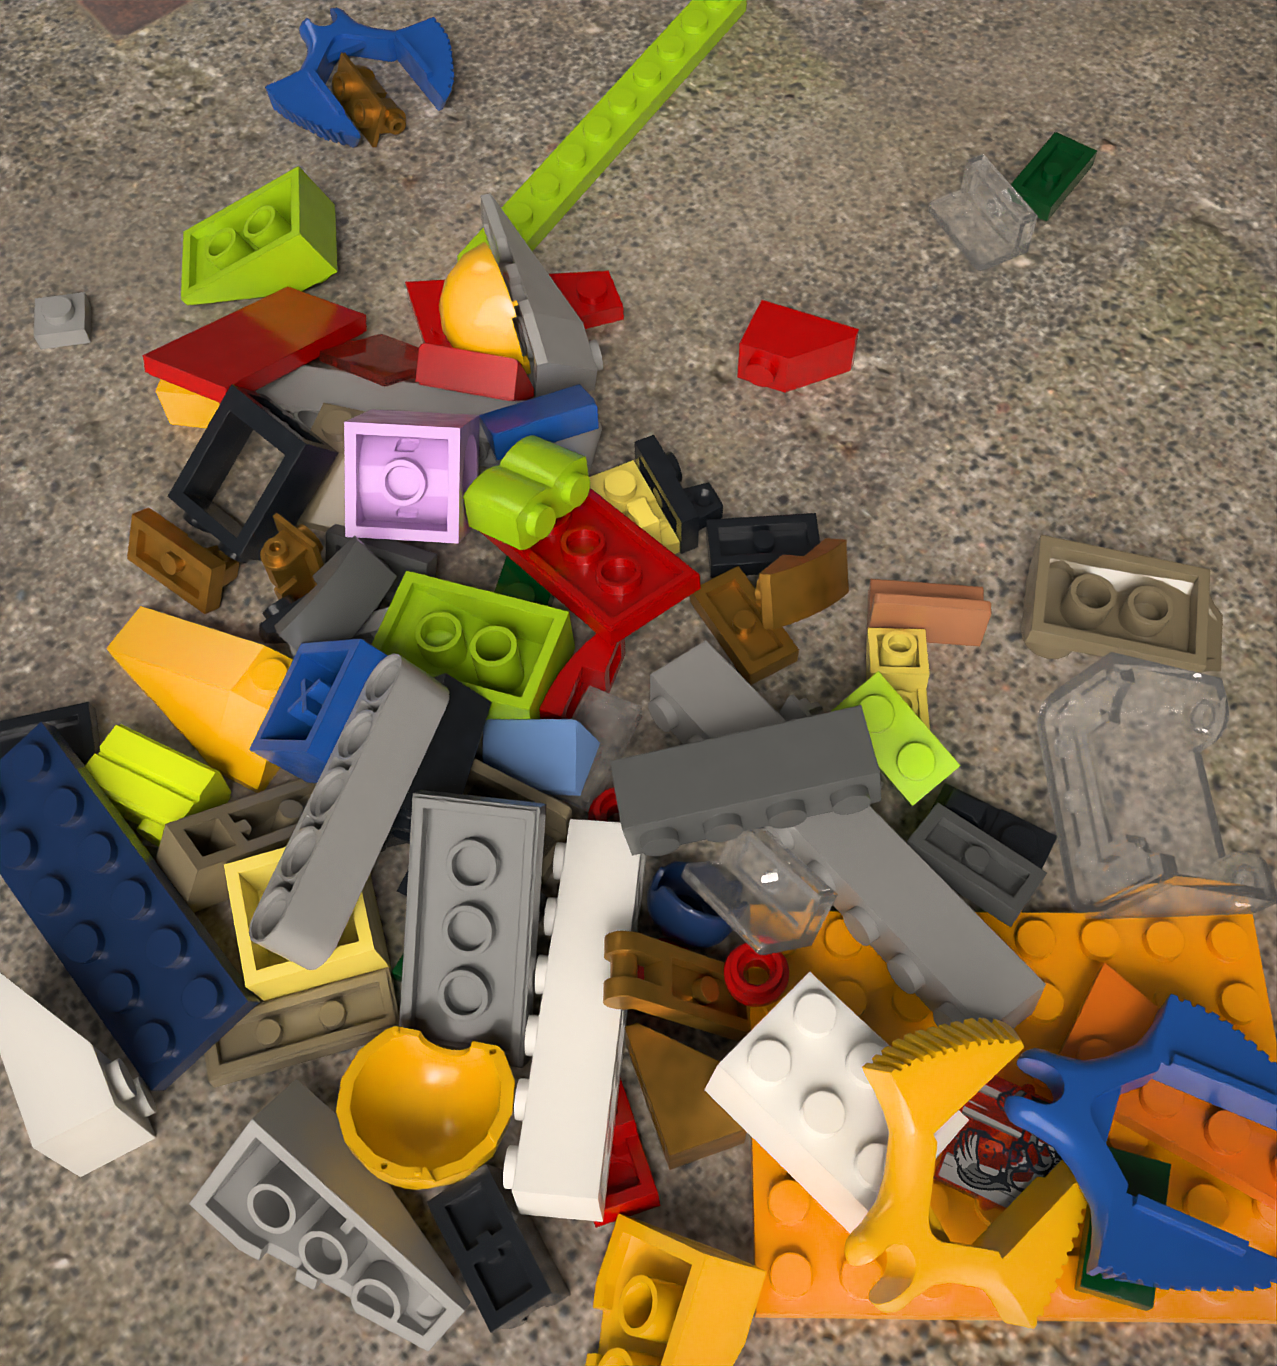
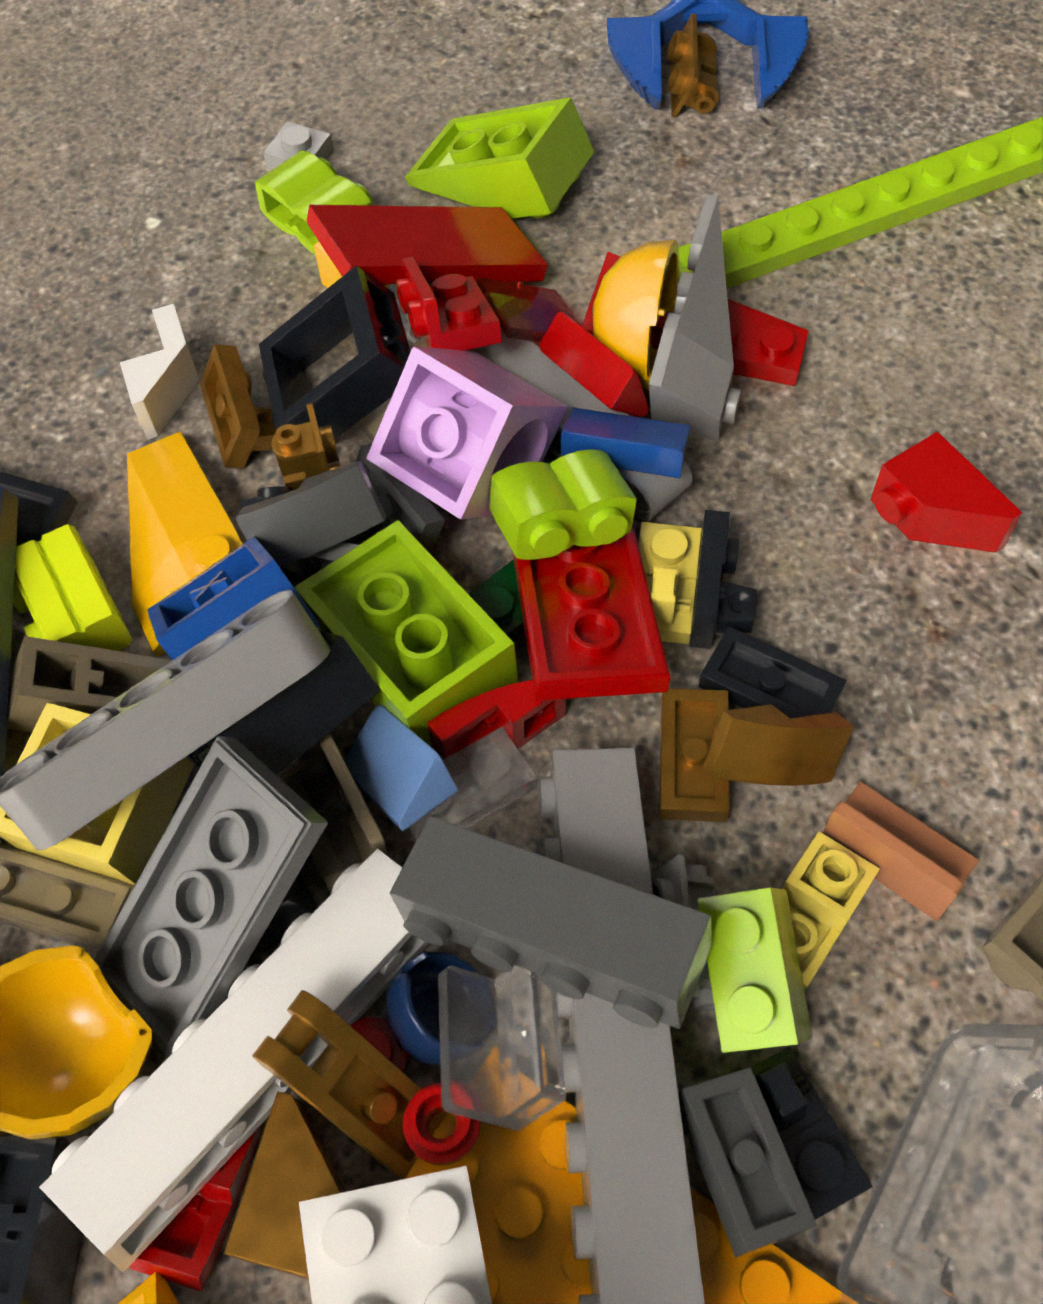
camera: 35 degrees right, 0 degrees up
(94, 570) = (161, 379): none -> white slope
(107, 357) = (302, 181): none -> lime brick
(325, 386) = (448, 311): none -> red bracket

